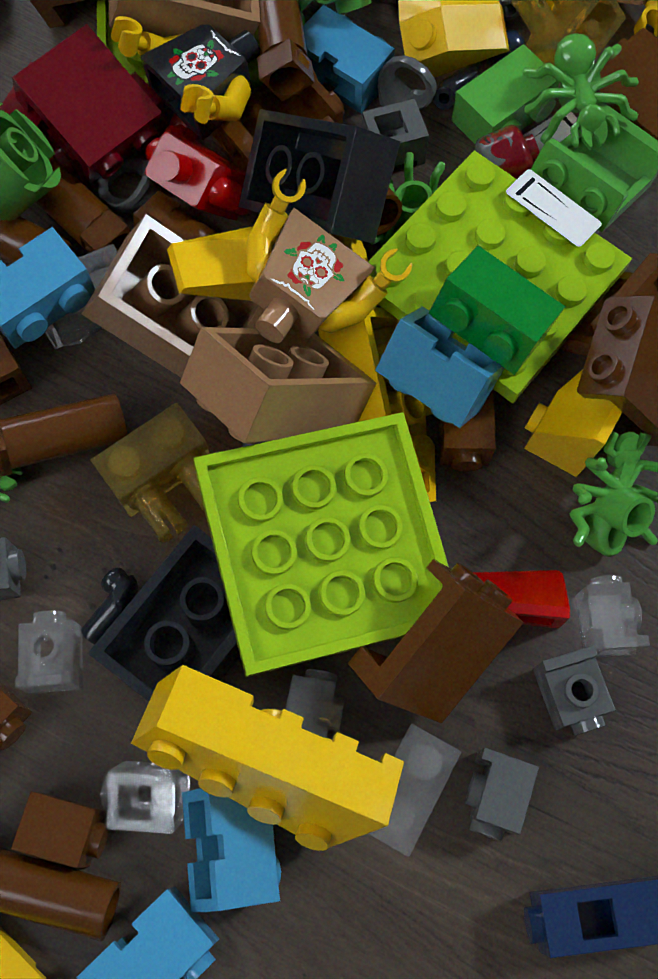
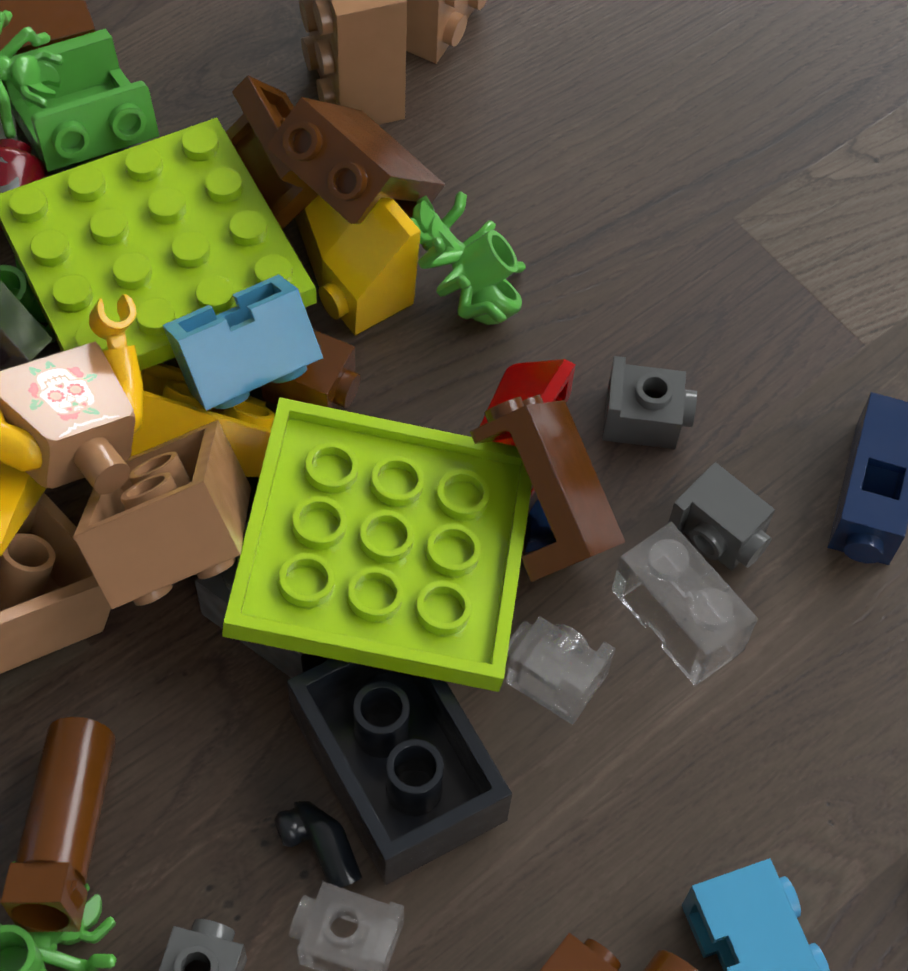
camera: 70 degrees left, 10 degrees down
(132, 809) = (594, 876): clear brick -> none
(150, 465) = (166, 730): clear yellow brick -> none
(233, 855) = (670, 806): dark azure brick -> none
(267, 760) = (601, 703): yellow wedge -> none
(495, 309) = (222, 247): green brick -> none
(554, 208) = (116, 154): white sticker -> none
(610, 617) = (587, 336): clear brick -> none

